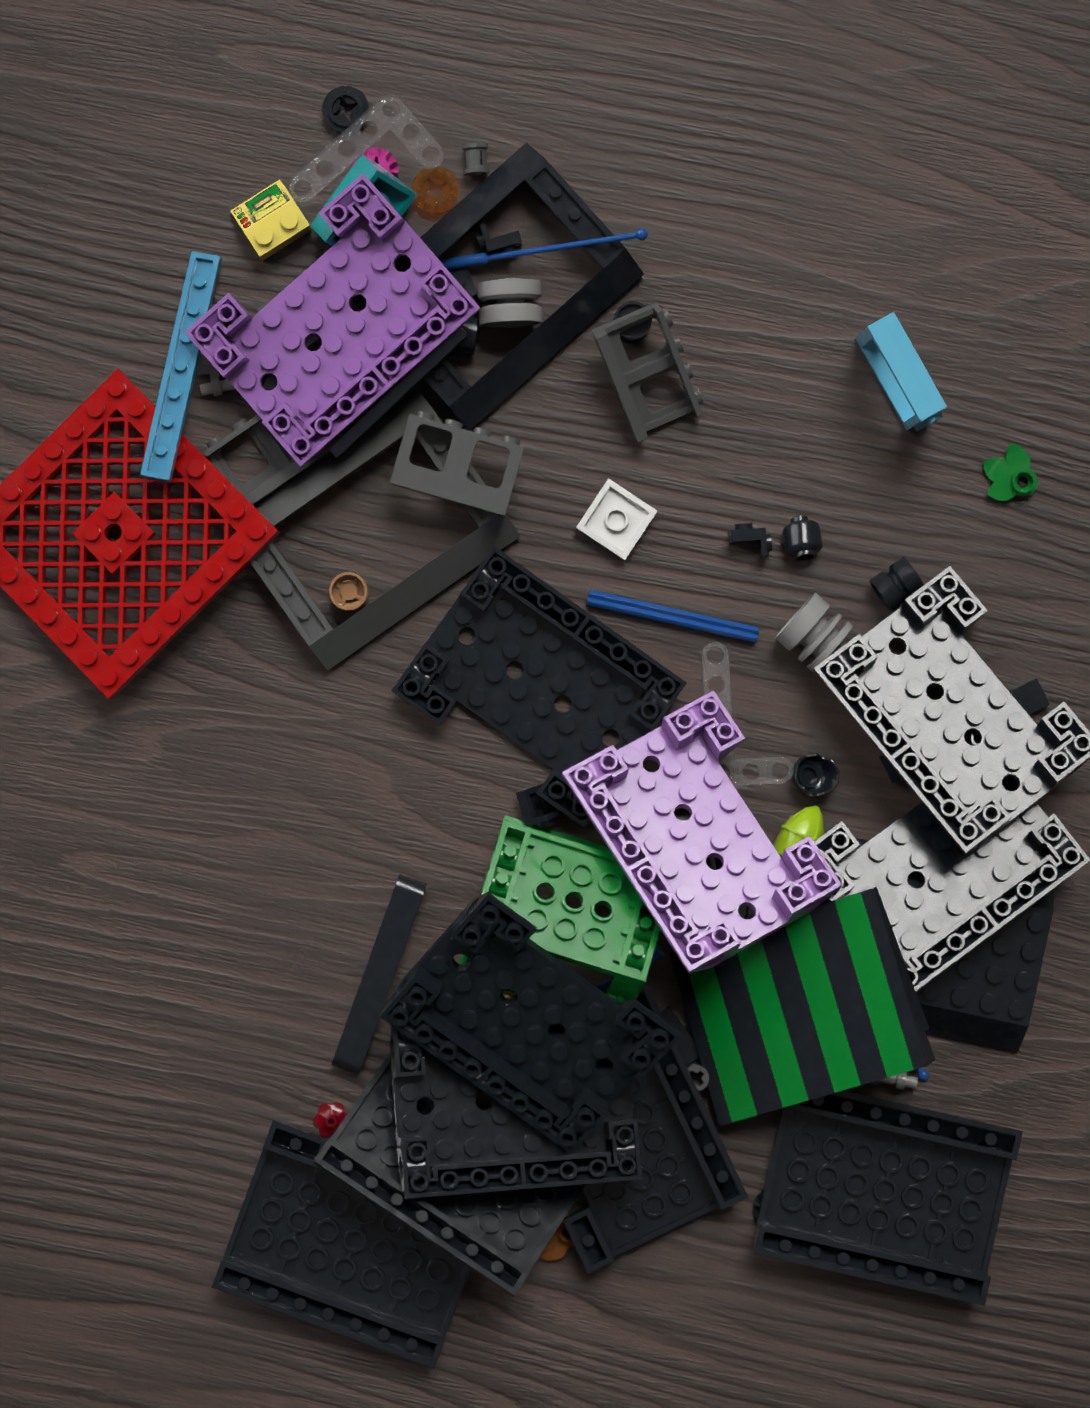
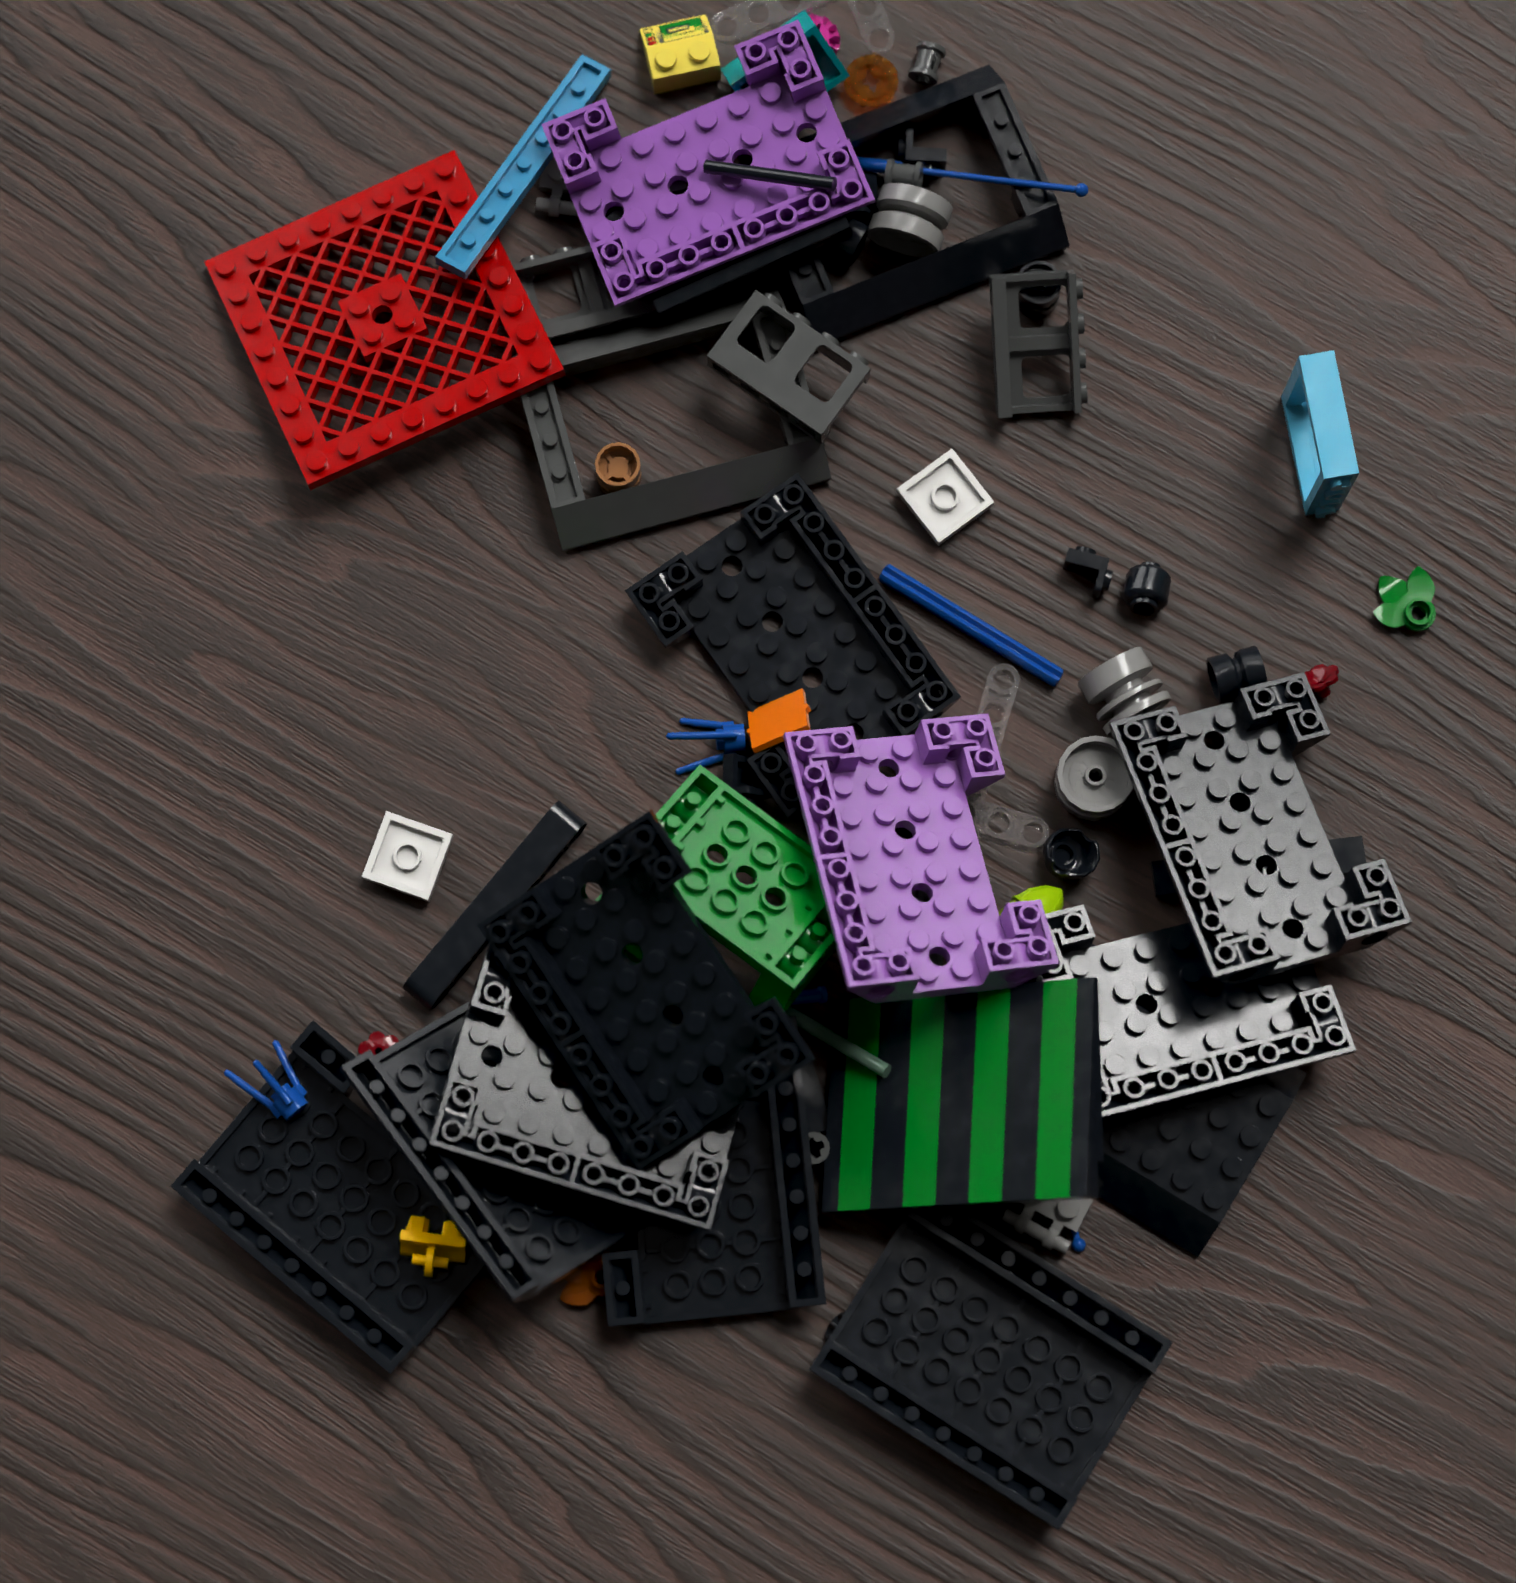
camera: 20 degrees right, 10 degrees down
(273, 1189) = (287, 1100): none -> blue plant
(296, 959) = (407, 856): none -> white plate
(387, 314) = (770, 175): none -> black bar
(417, 1260) = (429, 1248): none -> yellow hips
(492, 267) = (904, 173): none -> dark grey bush
(514, 776) = (728, 737): none -> blue plant
(550, 752) = (776, 717): none -> orange piece
(690, 991) = (840, 1043): none -> sand green bar
(796, 714) = (1087, 798): none -> light grey wheel
(963, 562) = (1321, 677): none -> dark red plant

